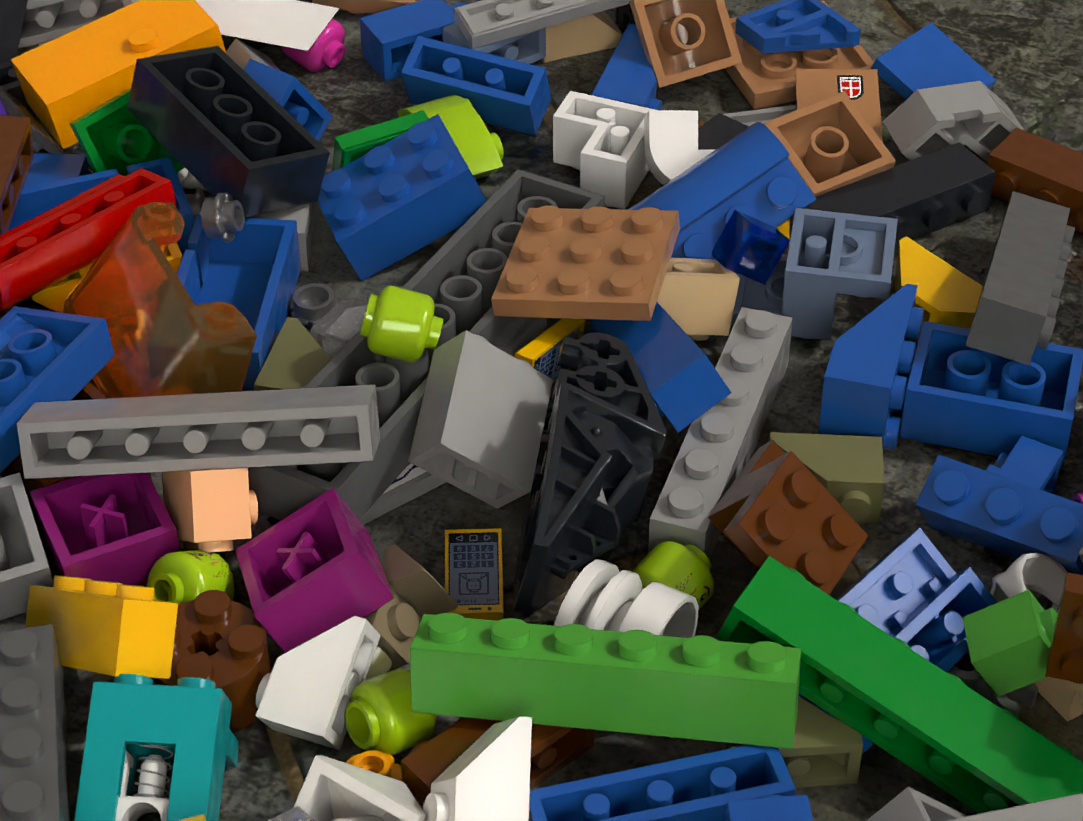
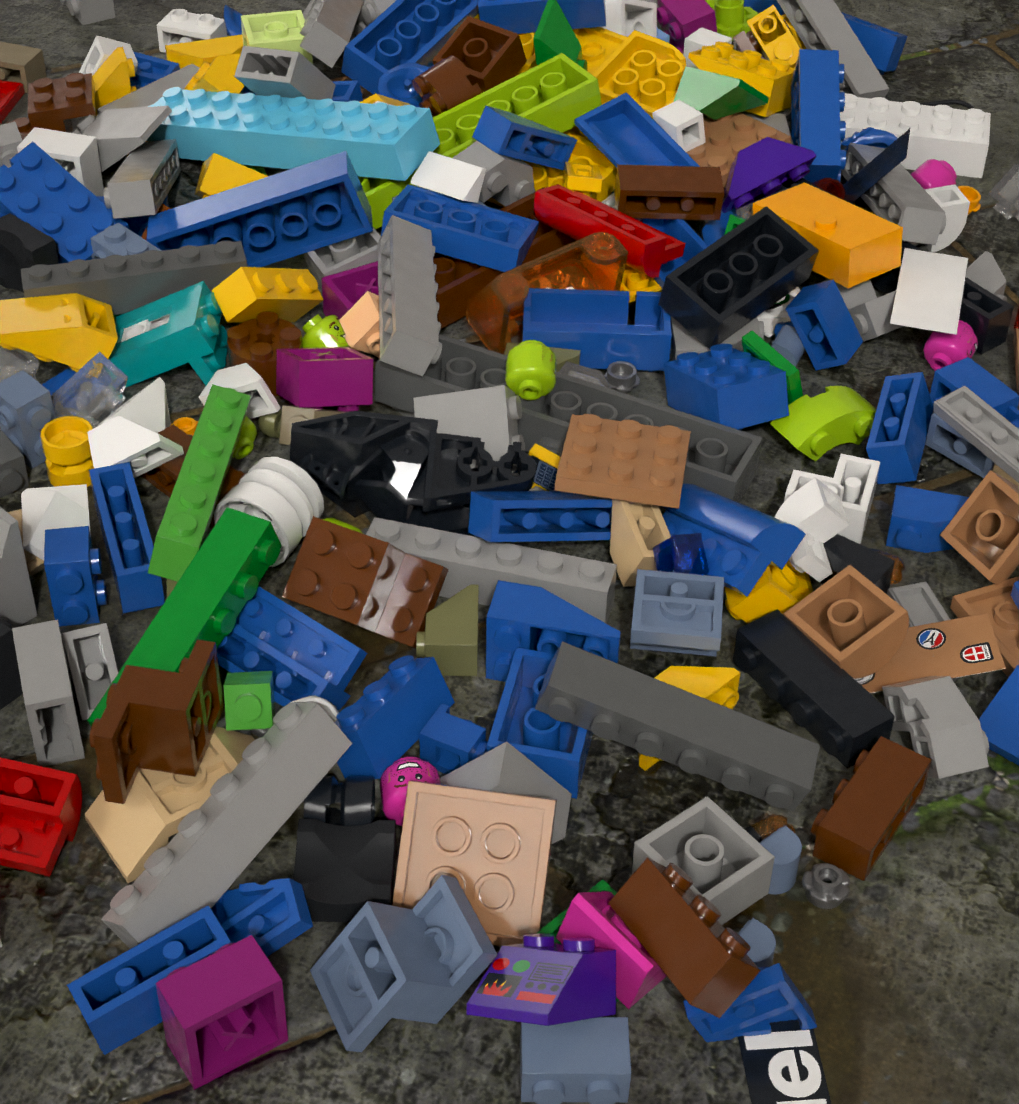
camera: 85 degrees right, 0 degrees up
(222, 217) = (645, 284): flat silver plate -> none

